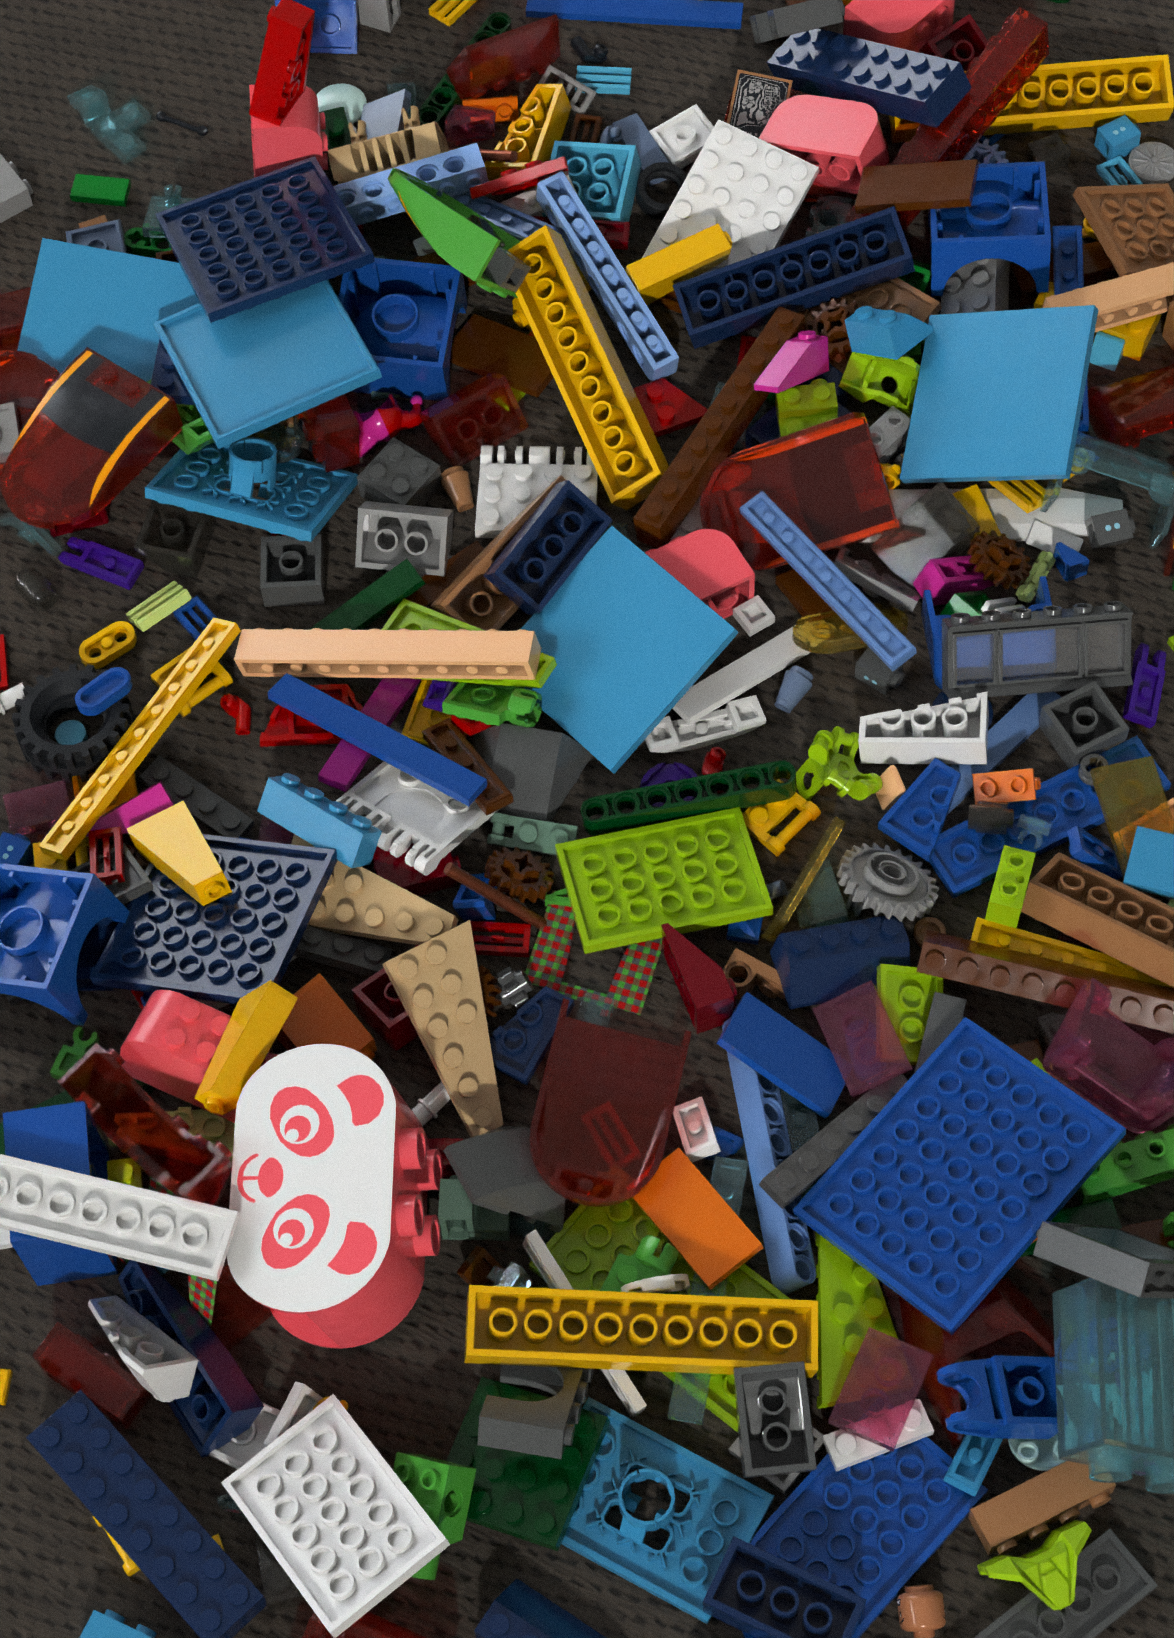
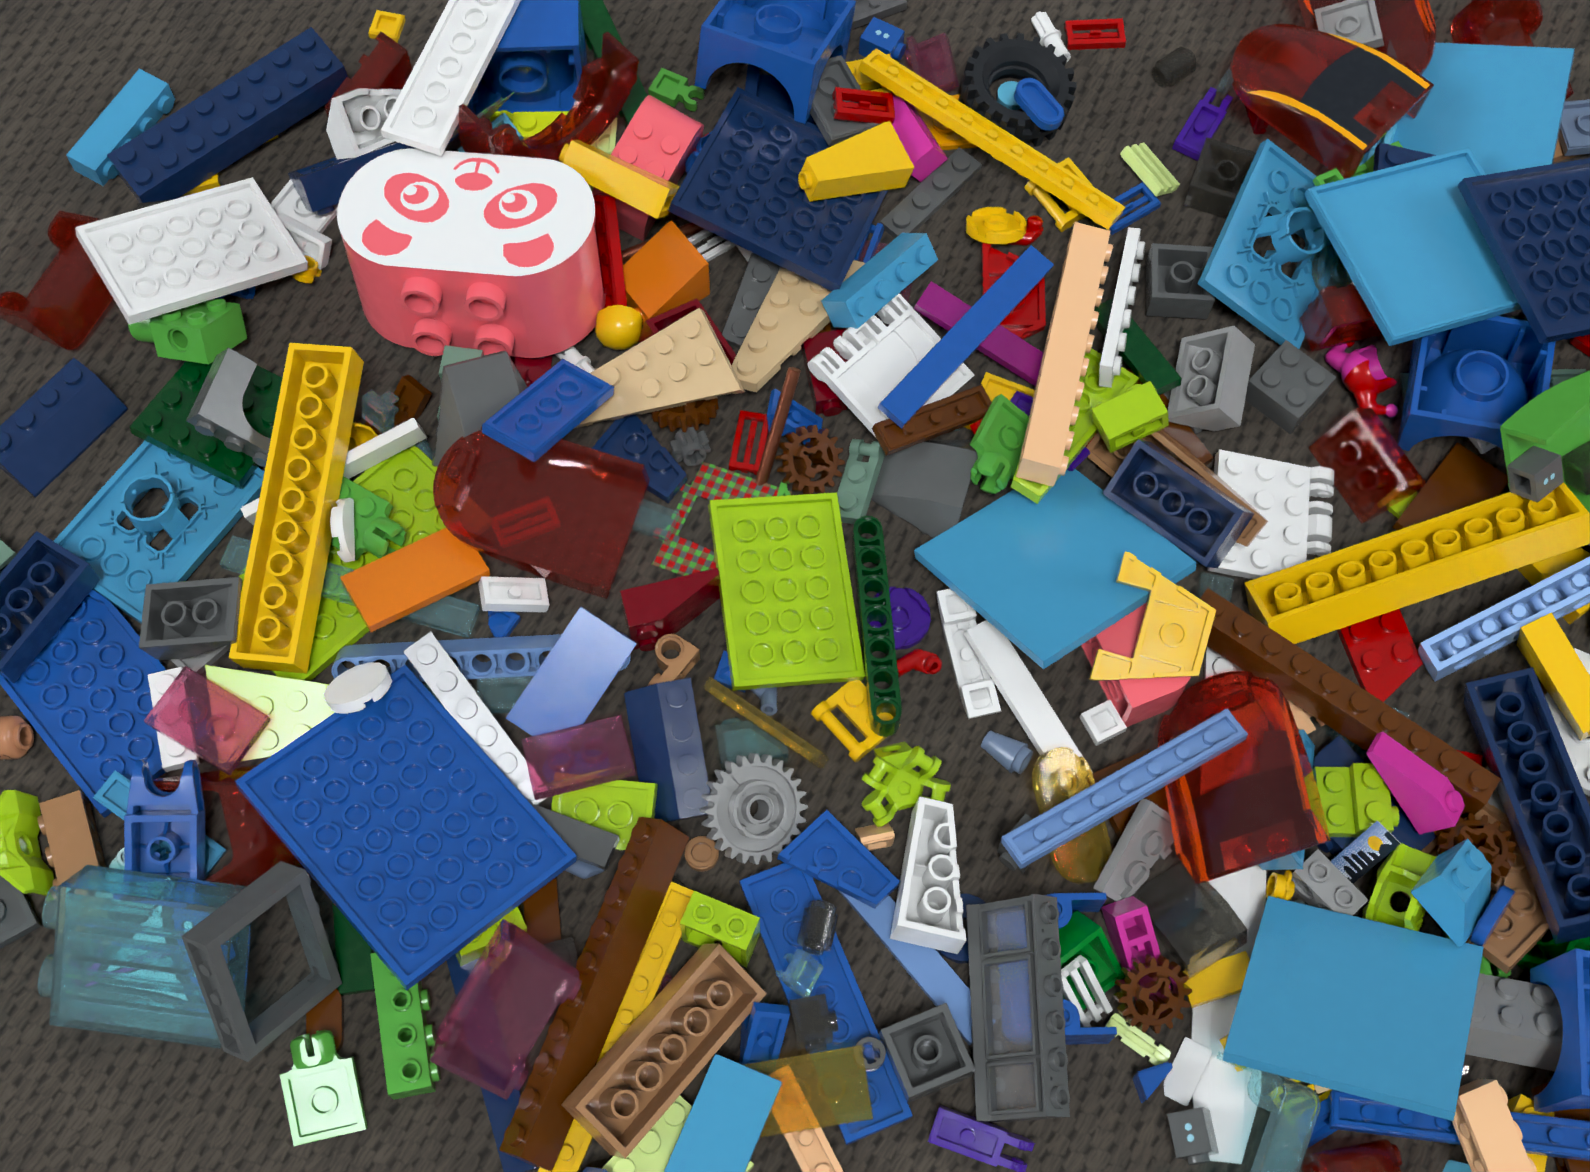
camera: 90 degrees right, 5 degrees up
(106, 643) = (1111, 126): yellow plate -> none
(236, 733) = (995, 225): none -> yellow tile
(328, 615) = (1120, 314): none -> white plate
(390, 1062) = (618, 327): none -> yellow hair
(458, 487) = (1280, 444): medium nougat cone -> none
(462, 588) = (1130, 416): none -> lime brick
(507, 1099) = (547, 410): none -> blue tile
(686, 540) = (1171, 631): none -> yellow wing
(828, 1242) = (356, 686): none -> white tile
(851, 396) = (1365, 852): none -> sticker
(888, 303) = (1492, 916): none -> blue tile
(1006, 786) = (856, 954): orange hinge -> none
(1078, 809) = (813, 1022): none -> clear smoke brick

